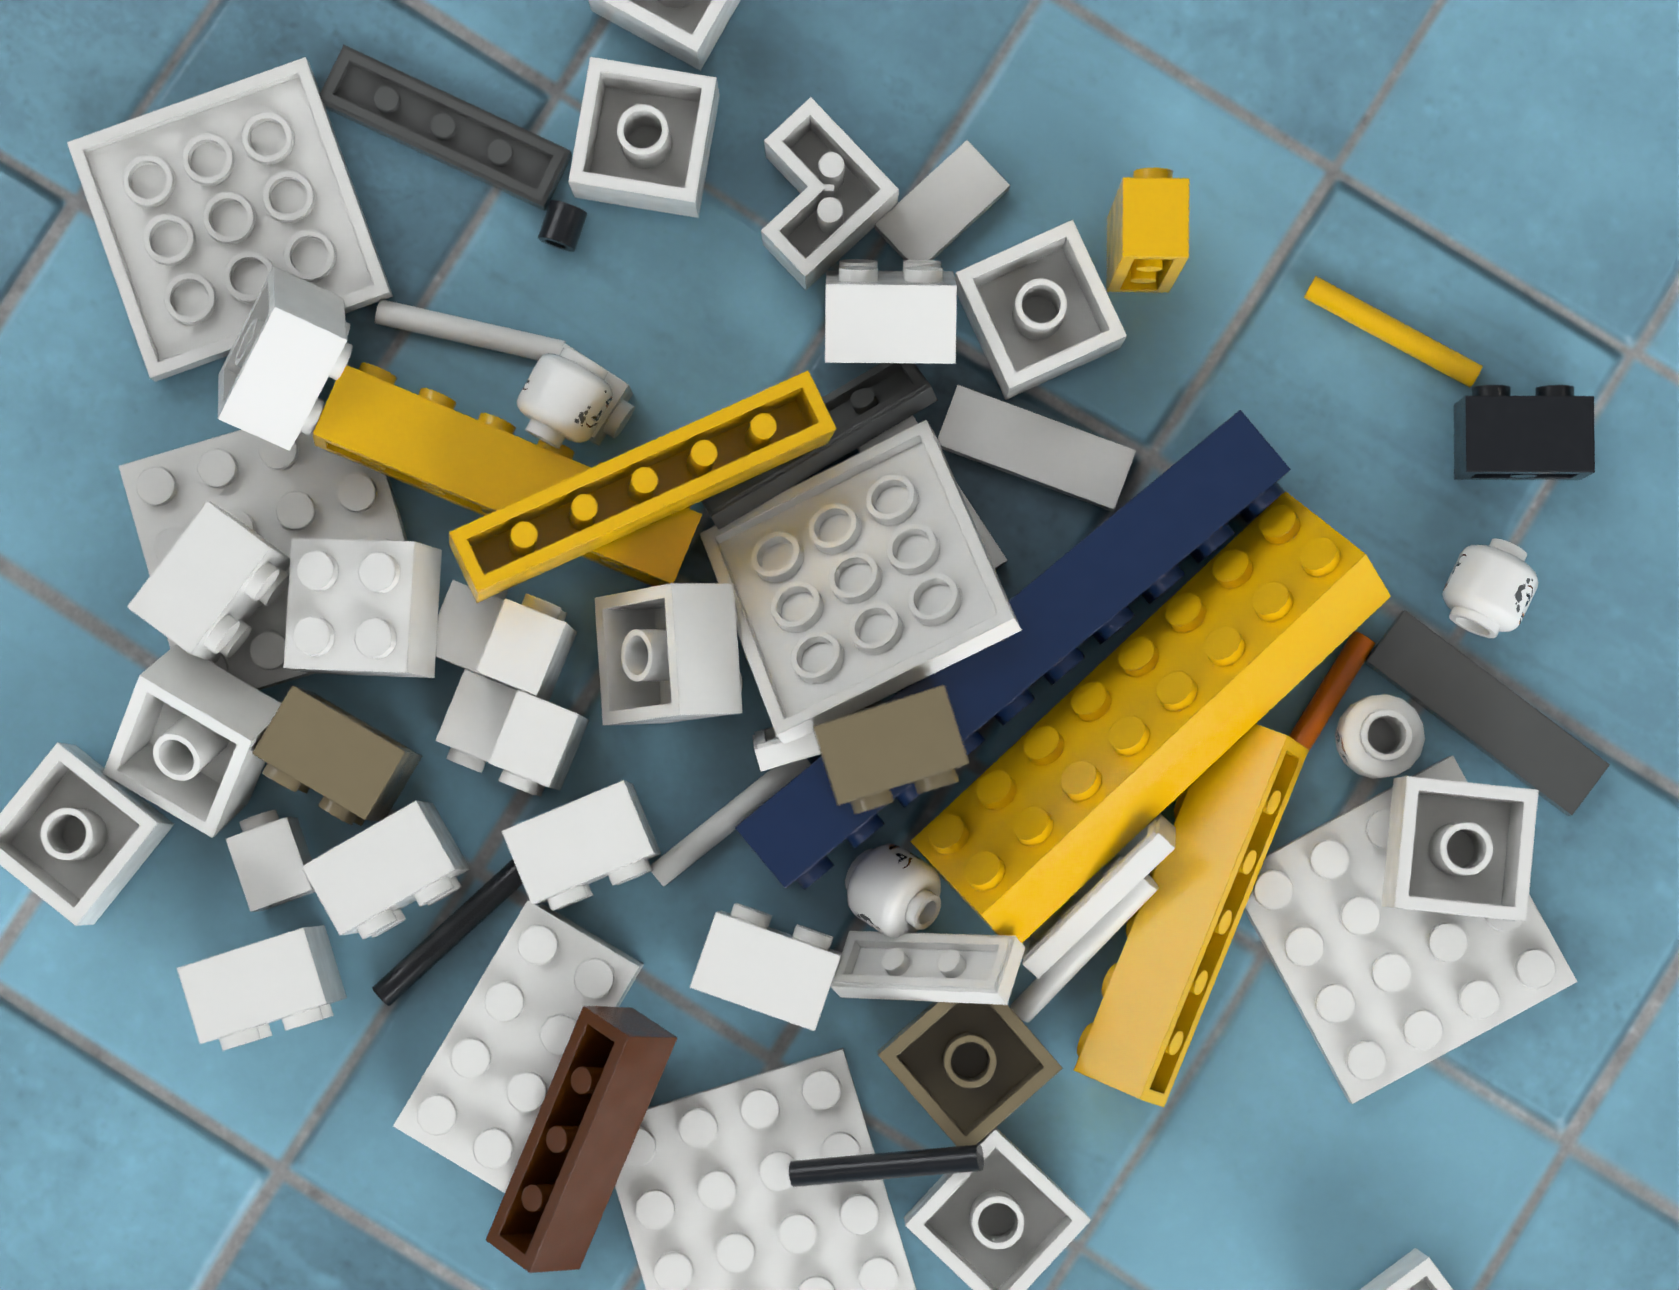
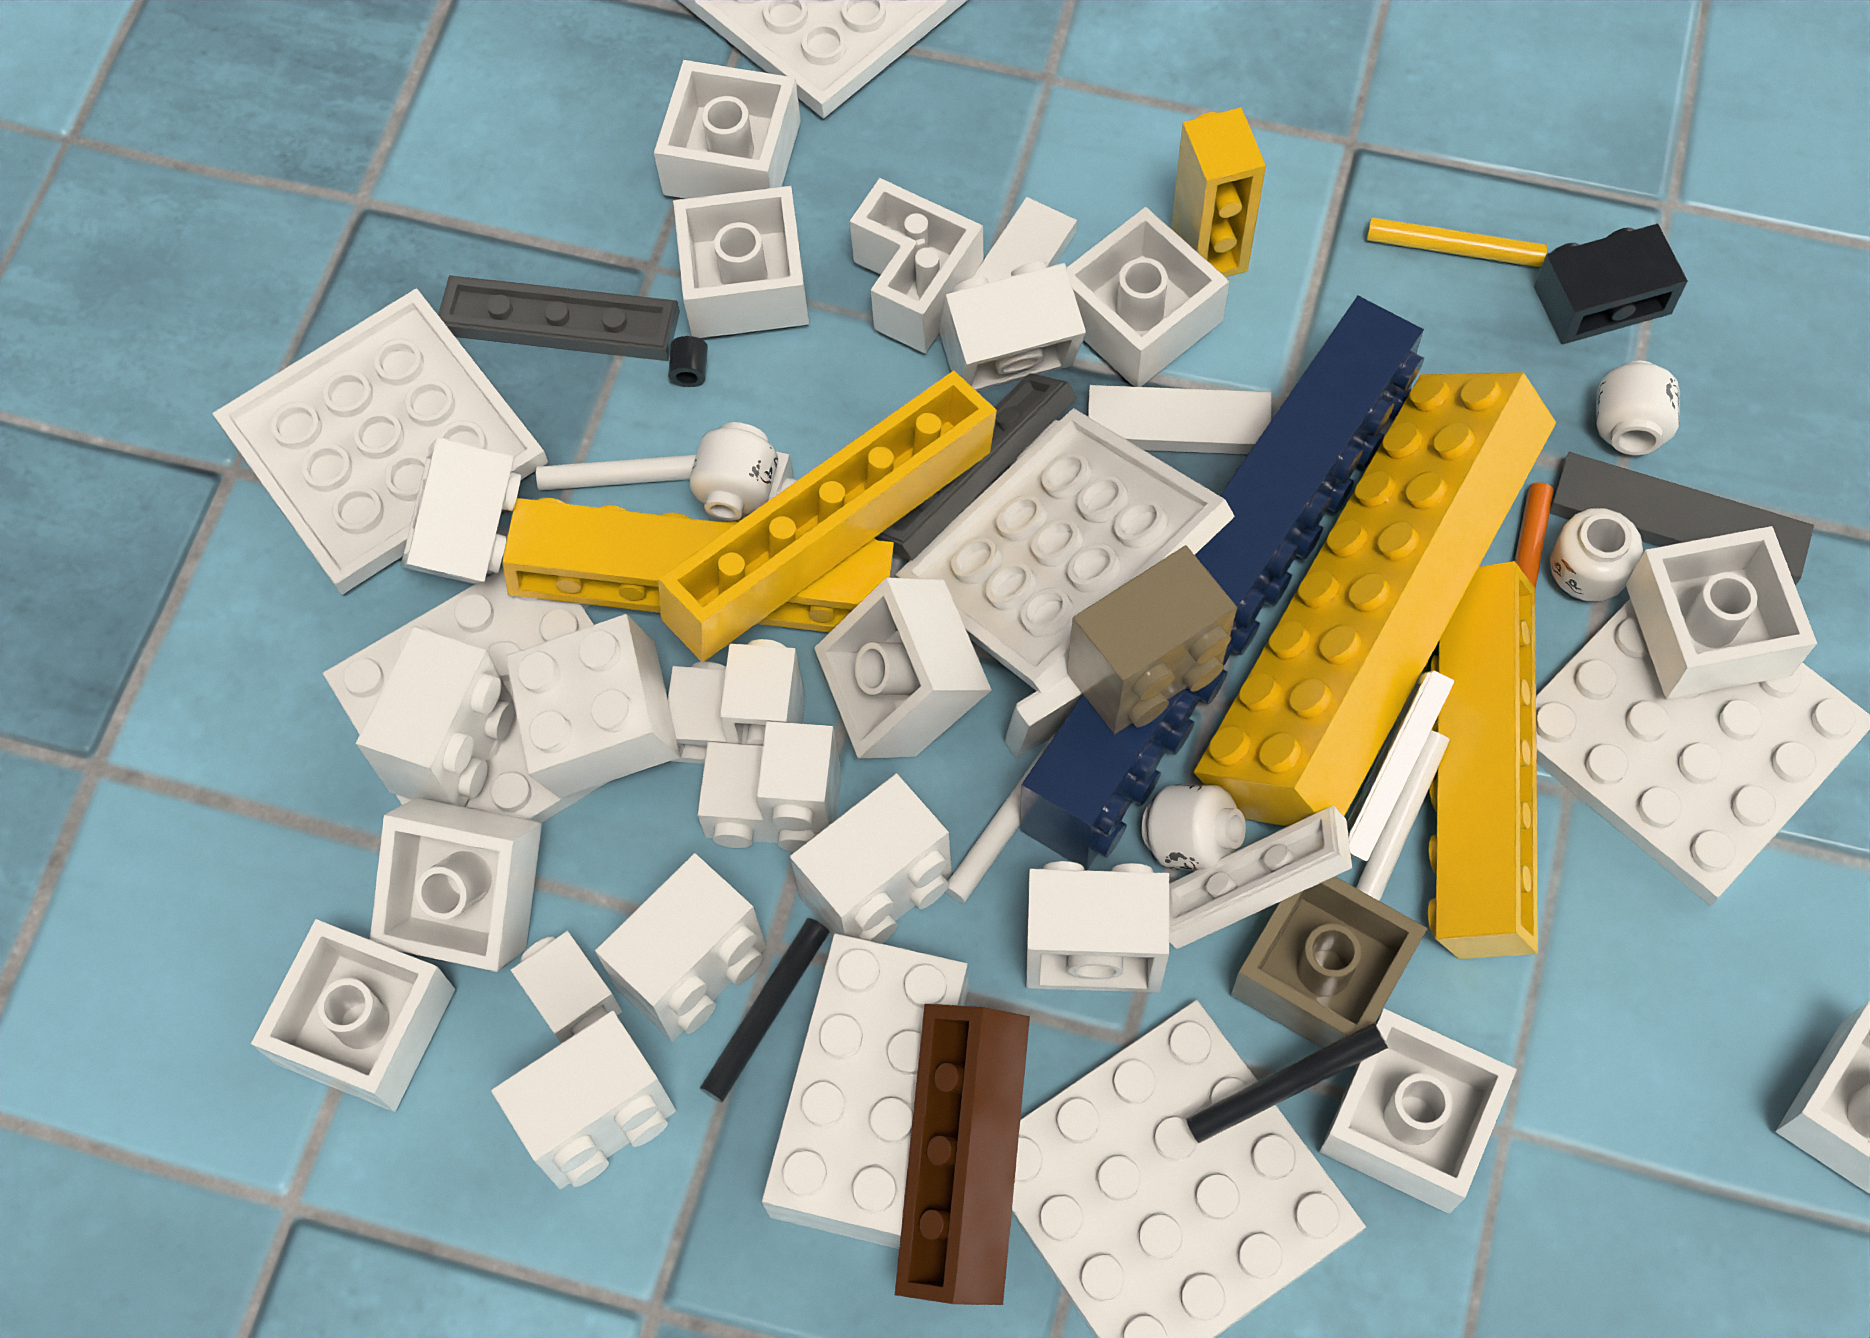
camera: 15 degrees left, 20 degrees down
(335, 755) = (598, 852): dark tan brick -> none

